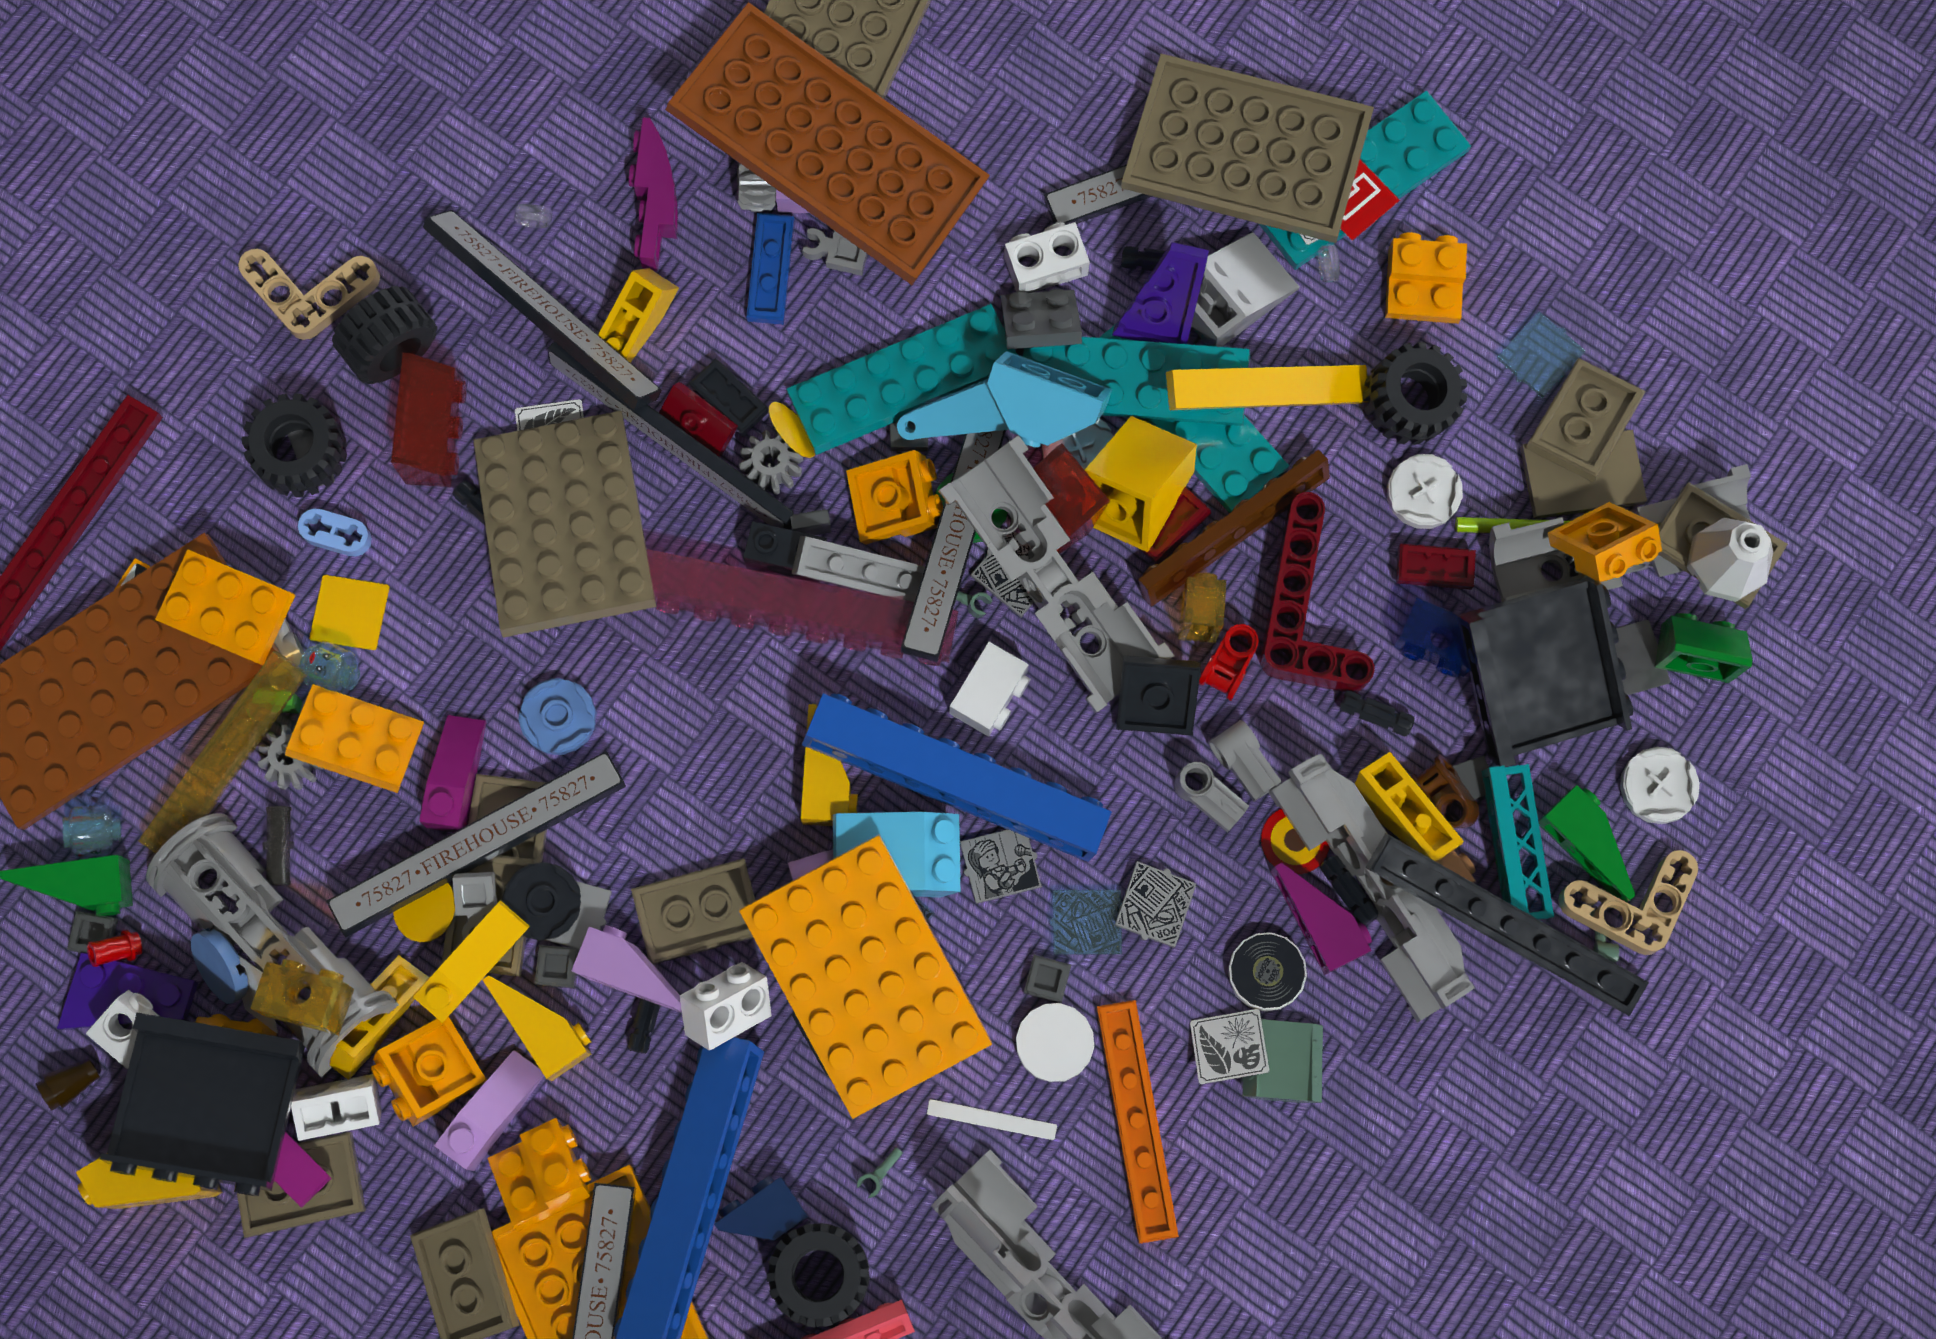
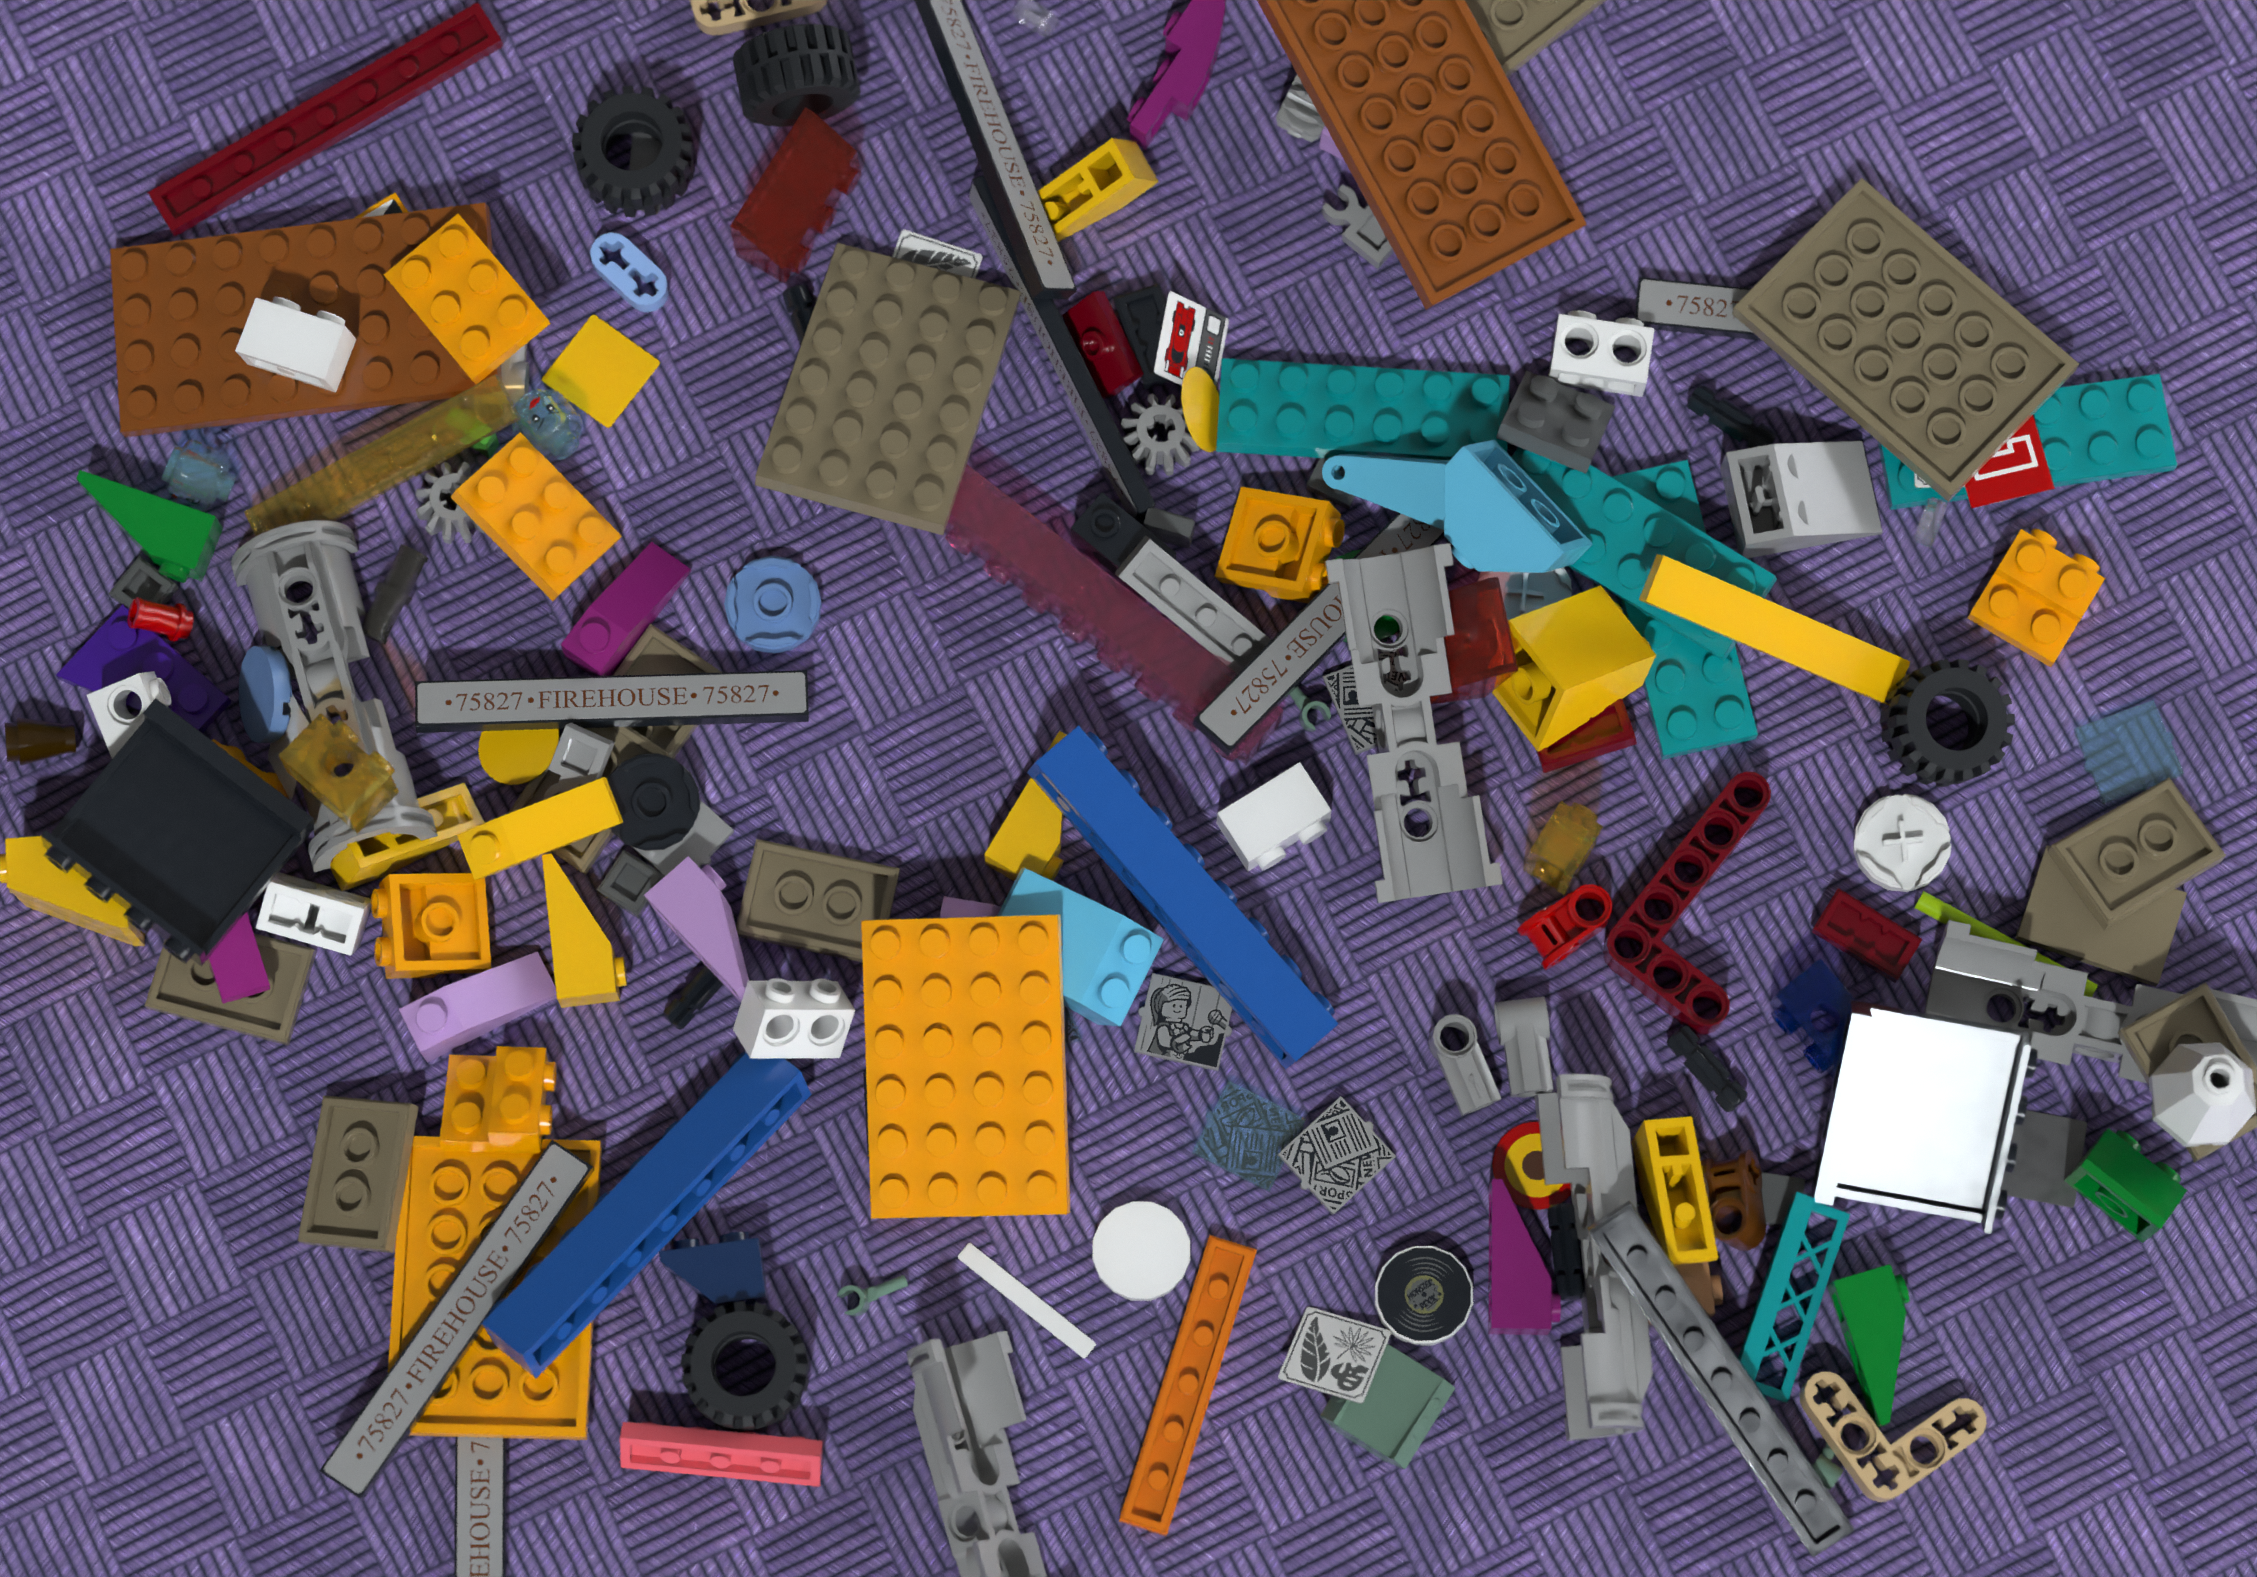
camera: 30 degrees right, 0 degrees up
(114, 700) = (296, 343): none -> white brick
(757, 386) = (1190, 339): none -> sticker
(770, 268) = (1276, 209): blue tile -> none
(1047, 979) = (1170, 1176): dark grey tile -> none
(1158, 695) = (1462, 920): black tile -> none
(1167, 298) = (1707, 471): dark purple wing -> none
(1234, 528) = (1653, 774): reddish brown plate -> none
(1607, 541) = (2070, 1003): light orange plate -> none
(1659, 785) = (1993, 1317): white tile -> none

